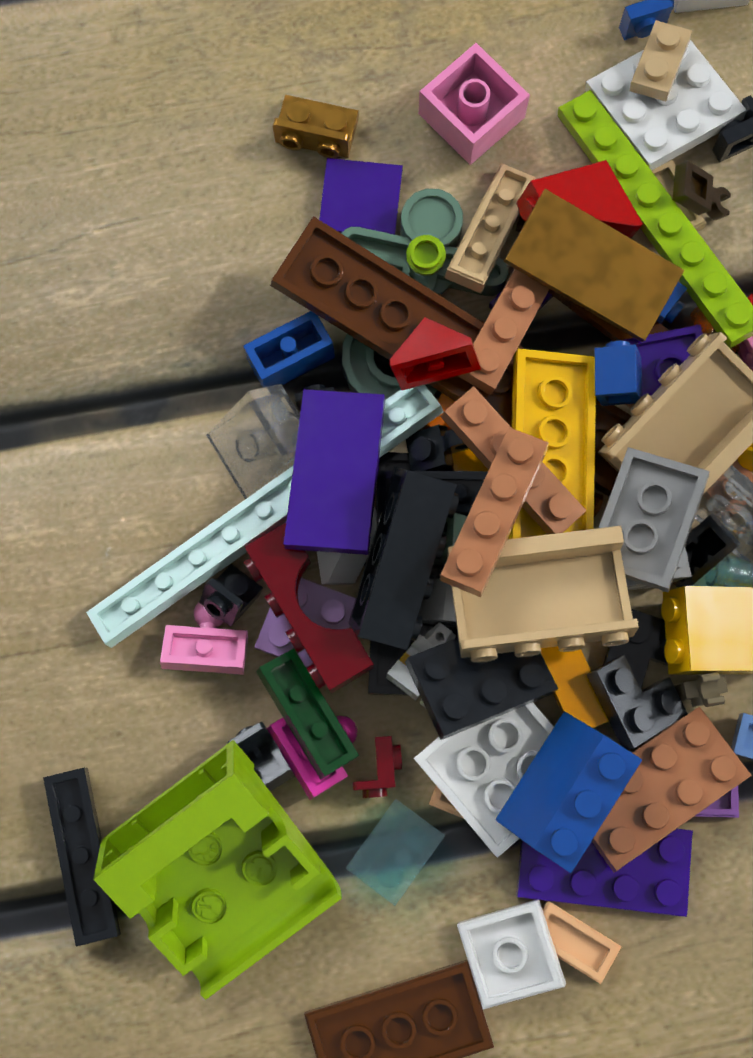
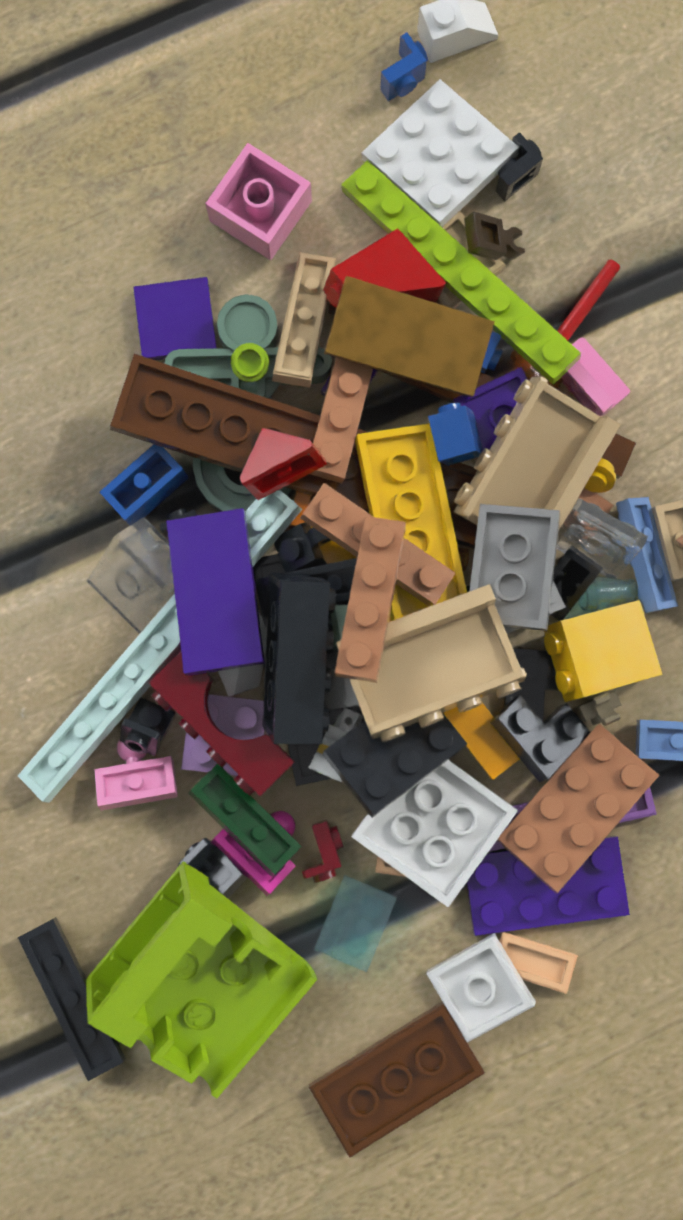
camera: 15 degrees left, 5 degrees up
(315, 127) = (115, 258): pearl gold bracket -> none
(568, 791) = (497, 834): blue slope -> none
(660, 60) = (427, 117): tan plate -> none

